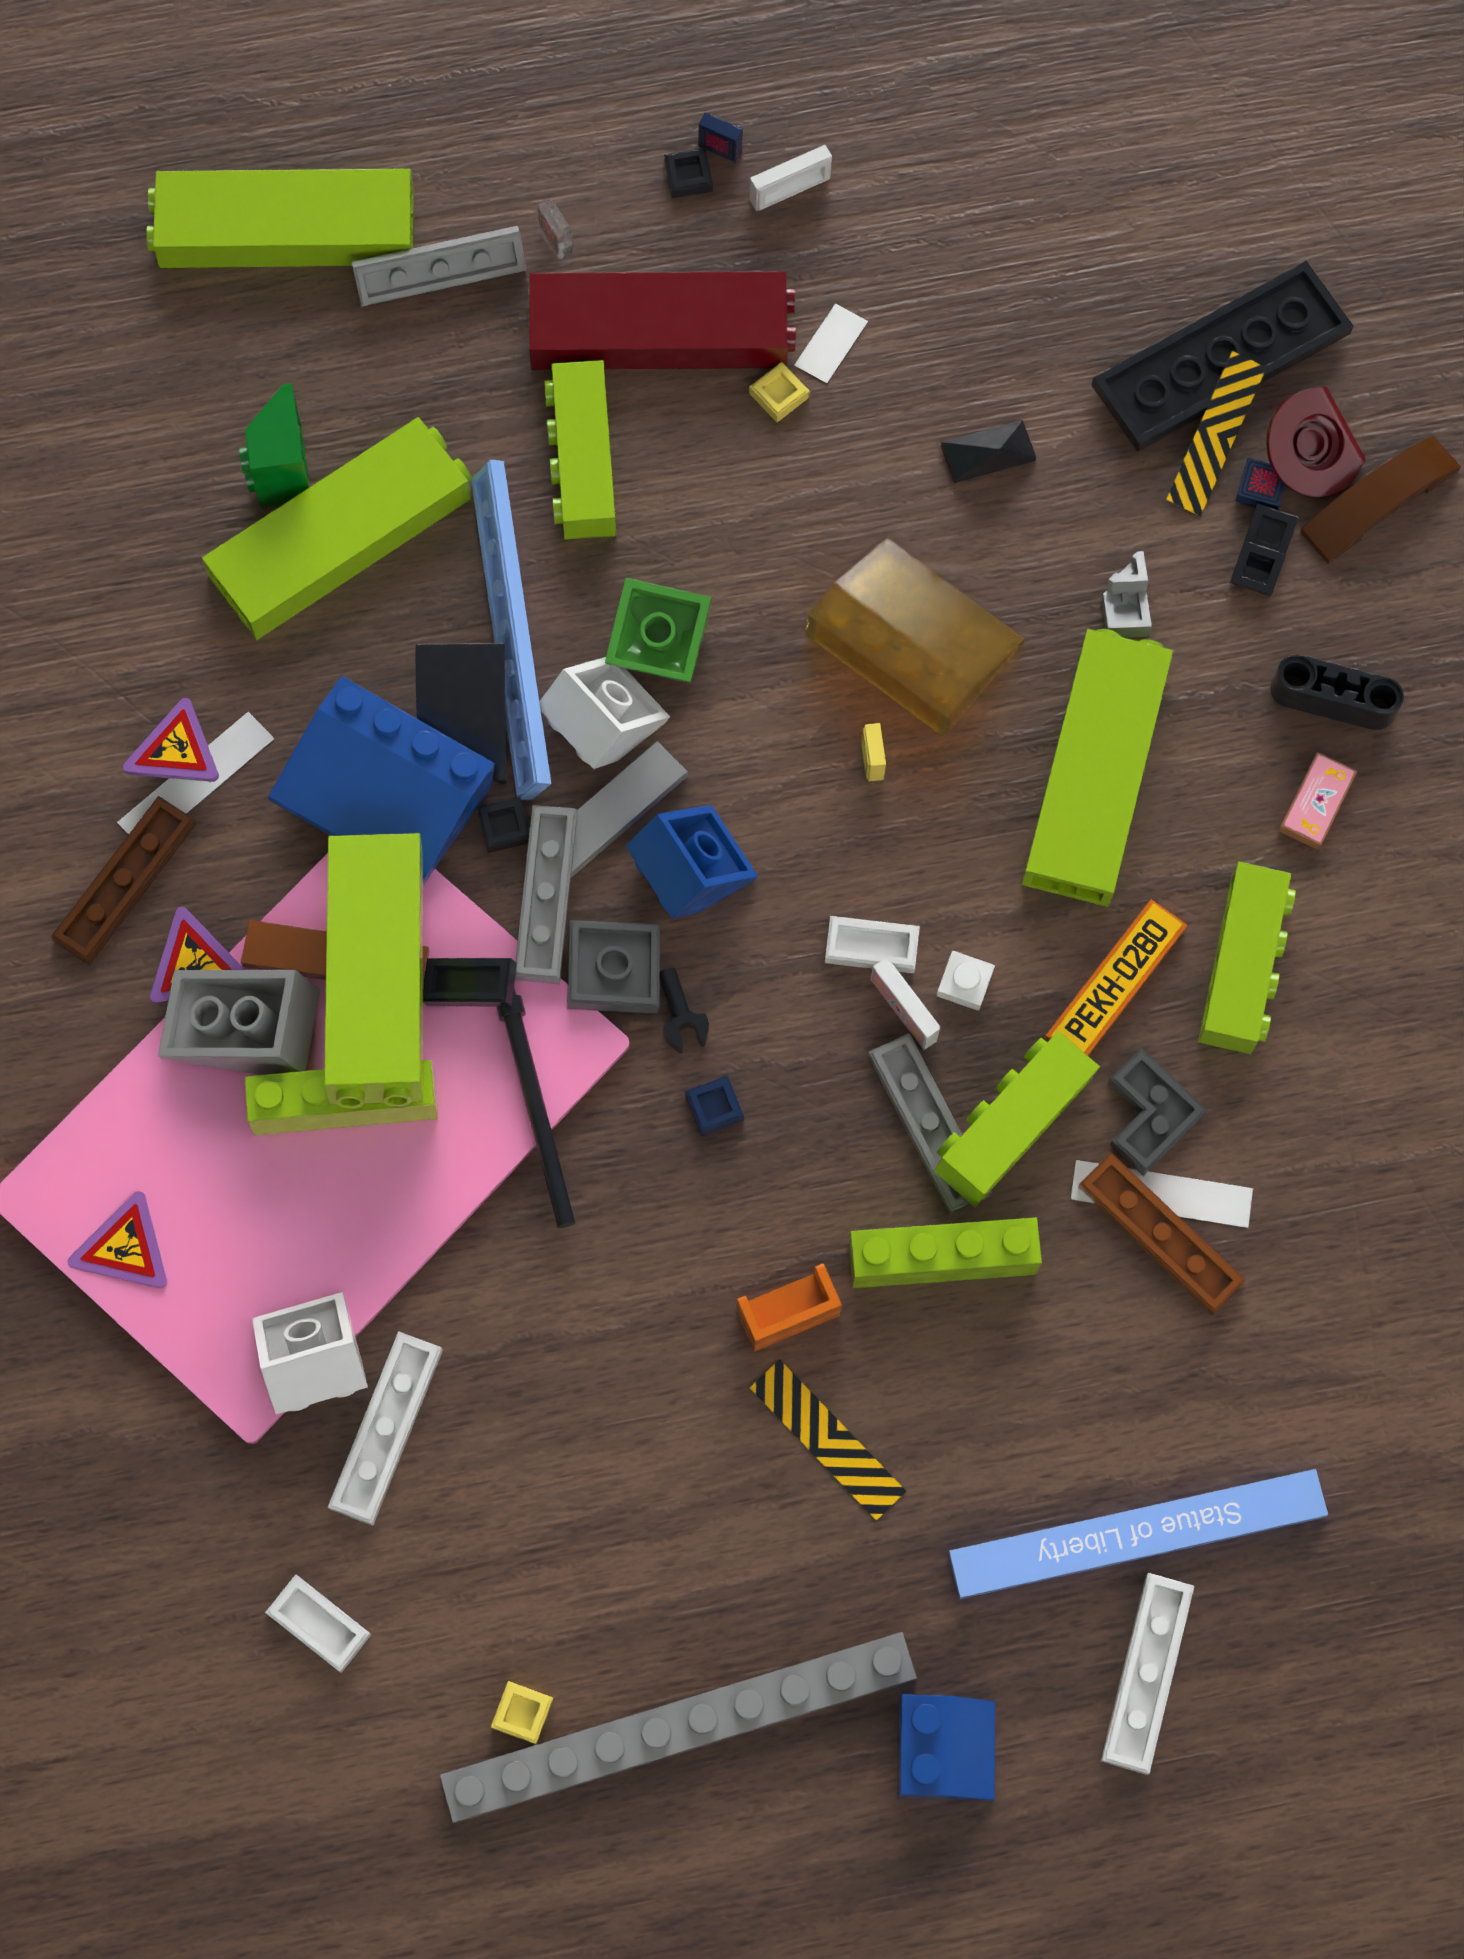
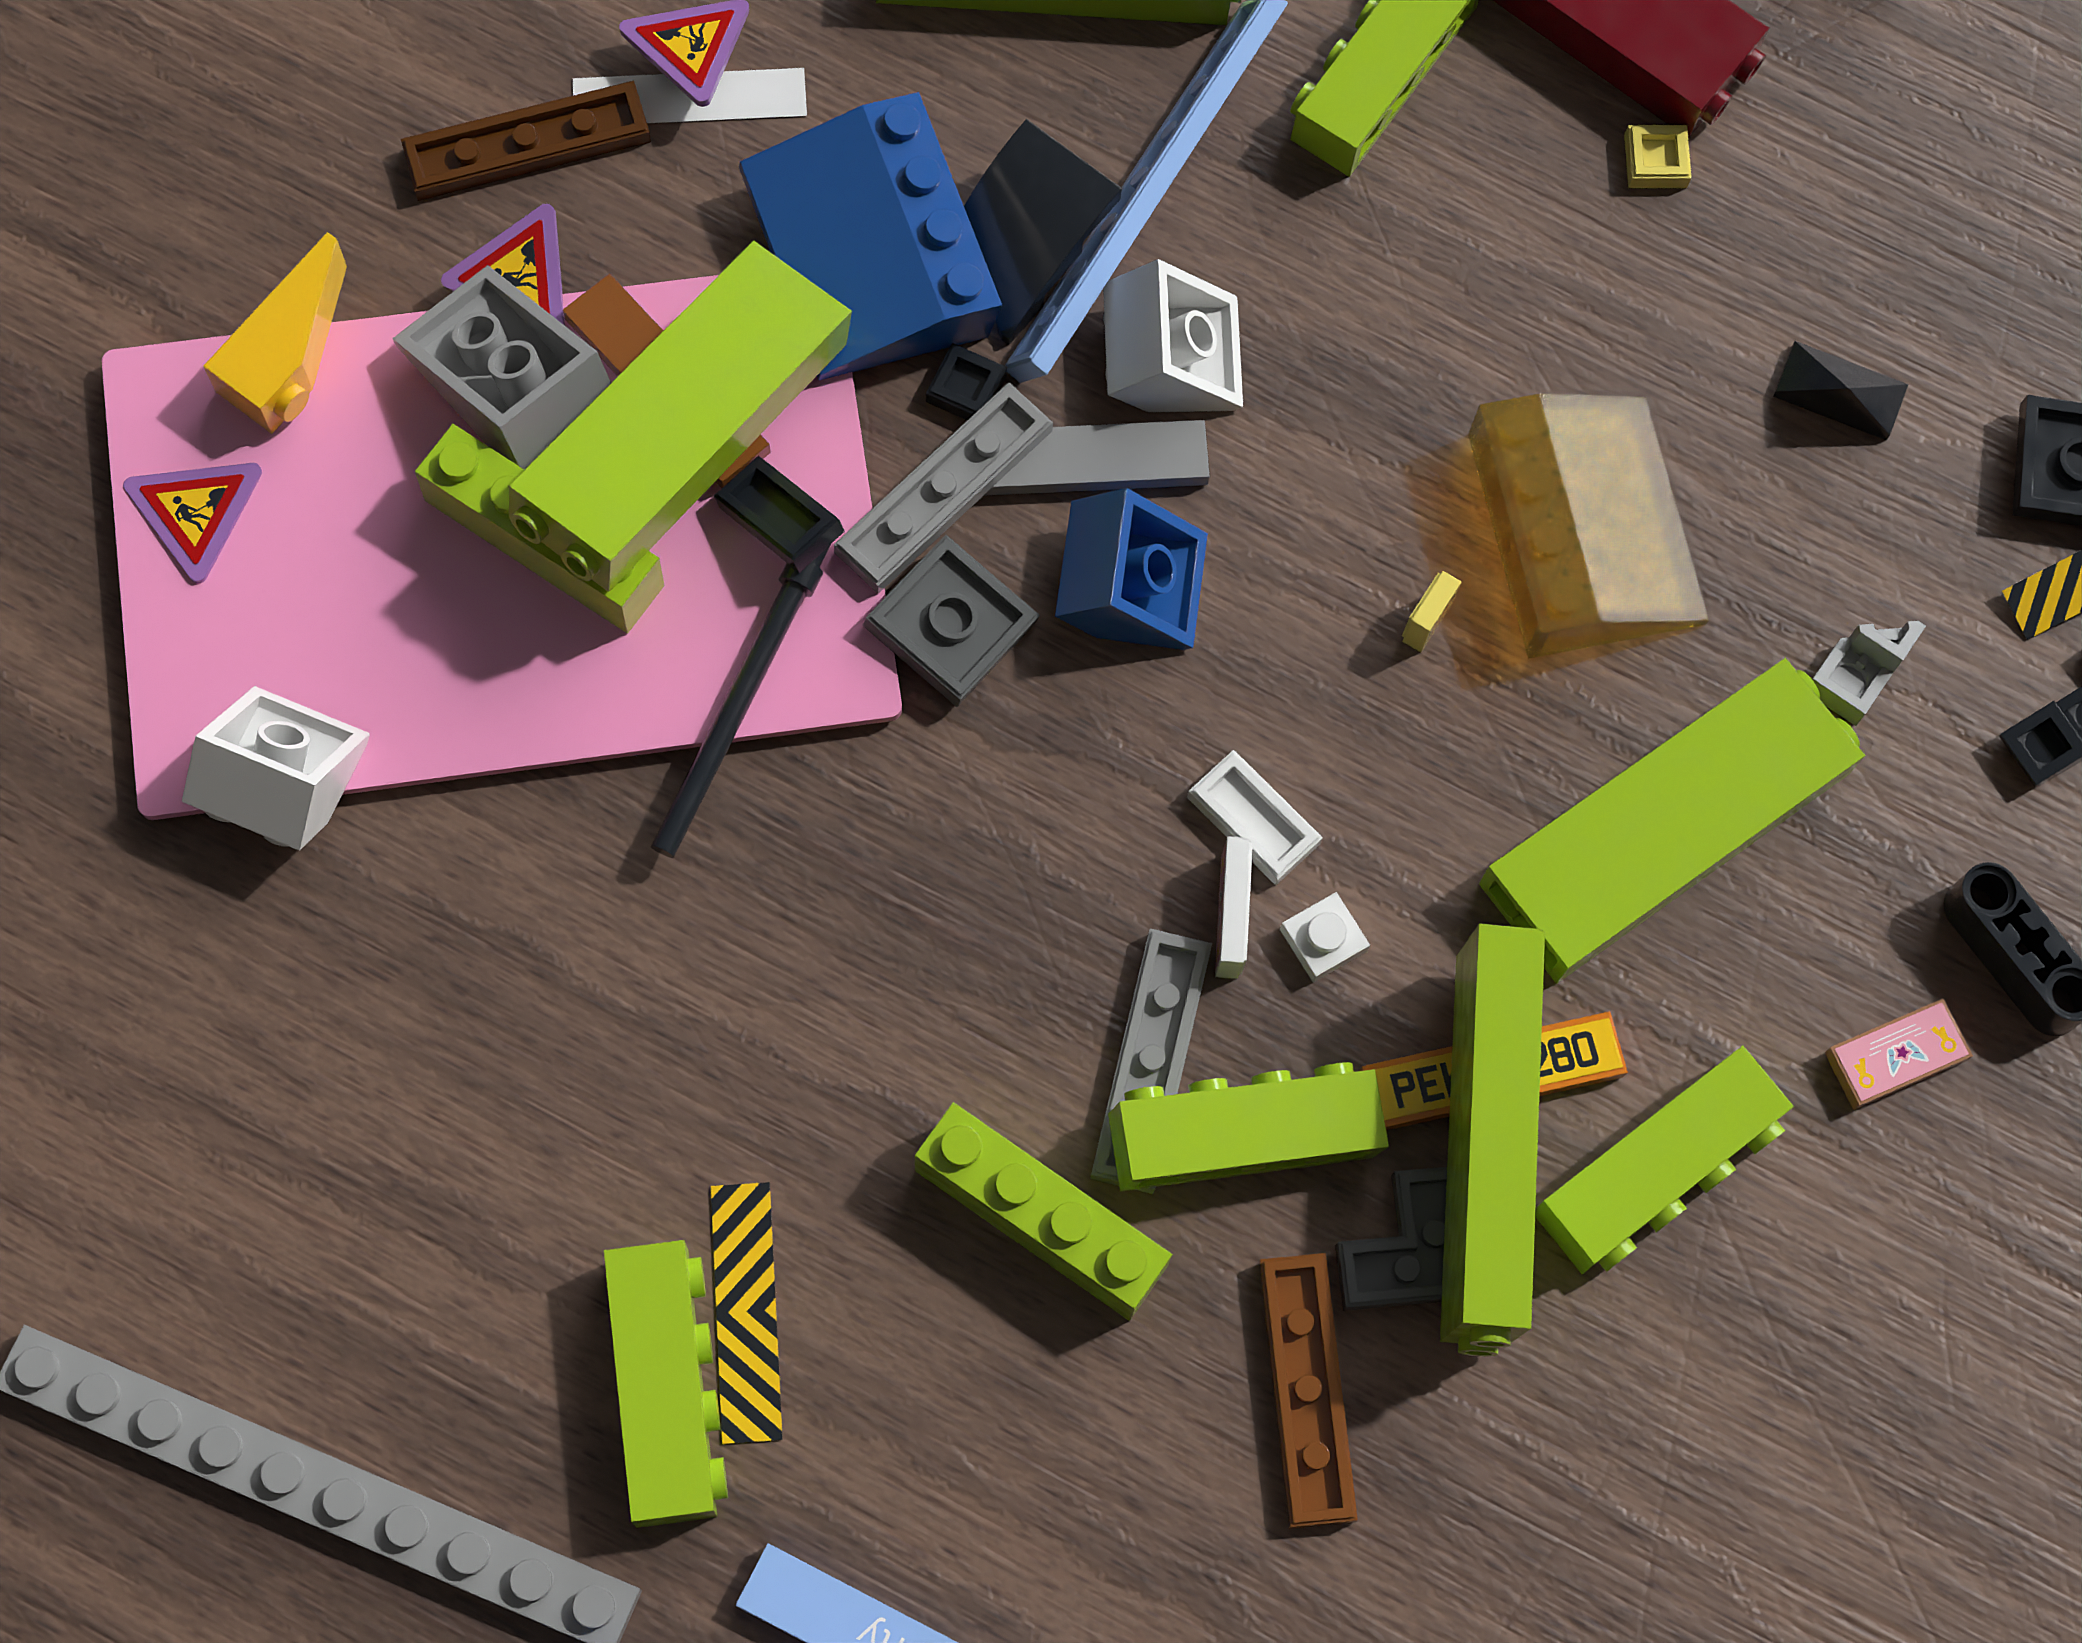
camera: 35 degrees right, 0 degrees up
(96, 1123) = (278, 349): none -> yellow slope
(318, 1623) = (46, 1061): white tile -> none
(385, 1428) = (292, 914): white tile -> none
(522, 1712) = (168, 1332): light yellow tile -> none
(658, 630) = (1304, 303): bright green slope -> none
(681, 1015) = (983, 726): black bar -> none
(714, 1105) = (933, 854): dark blue tile -> none
(789, 1309) = (819, 1135): orange panel -> none
(819, 1513) = (662, 1383): none -> lime brick
(831, 343) = (1760, 148): white sticker -> none
(1153, 1017) = (1493, 1139): none -> lime brick
(1185, 1196) = (1373, 1372): white sticker -> none

